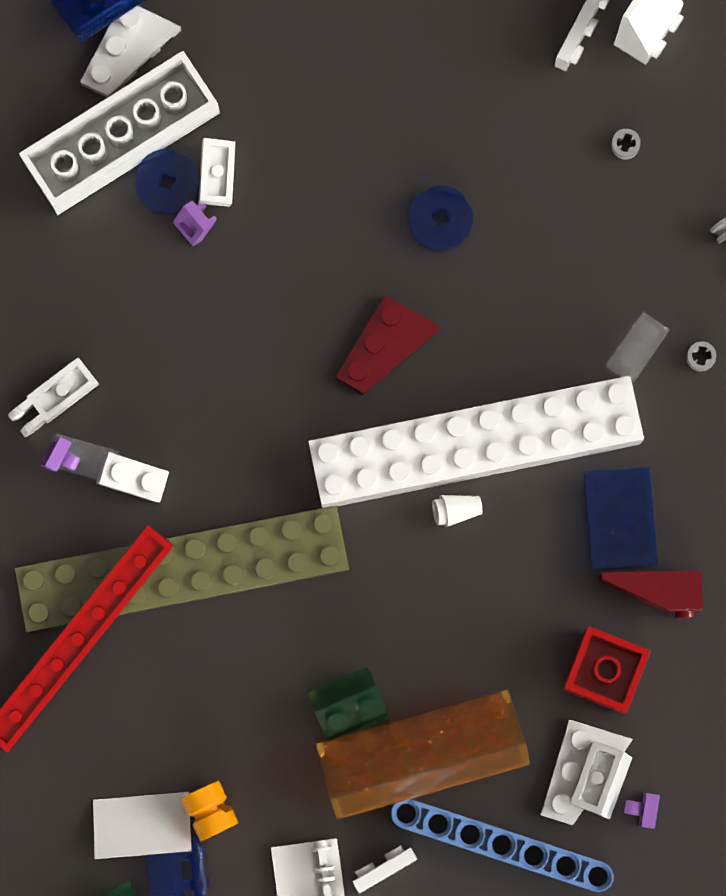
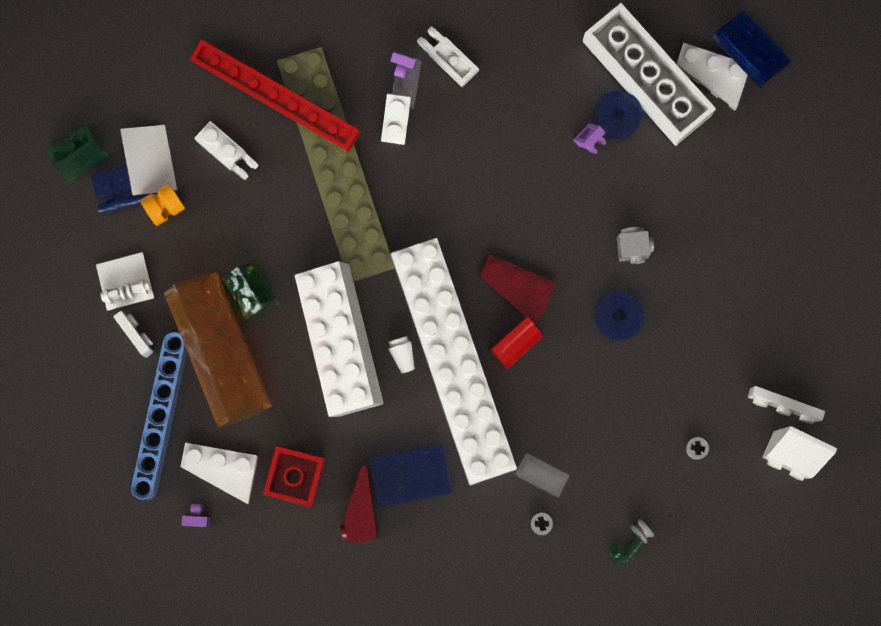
camera: 80 degrees right, 0 degrees up
(140, 718) = (224, 149): none -> white hinge
(216, 172) = (630, 148): white plate -> none
(349, 185) = (634, 245): none -> light grey brick
(429, 589) = (338, 339): none -> white brick
(460, 356) = (517, 343): none -> red brick
(601, 779) = (214, 483): white panel -> none

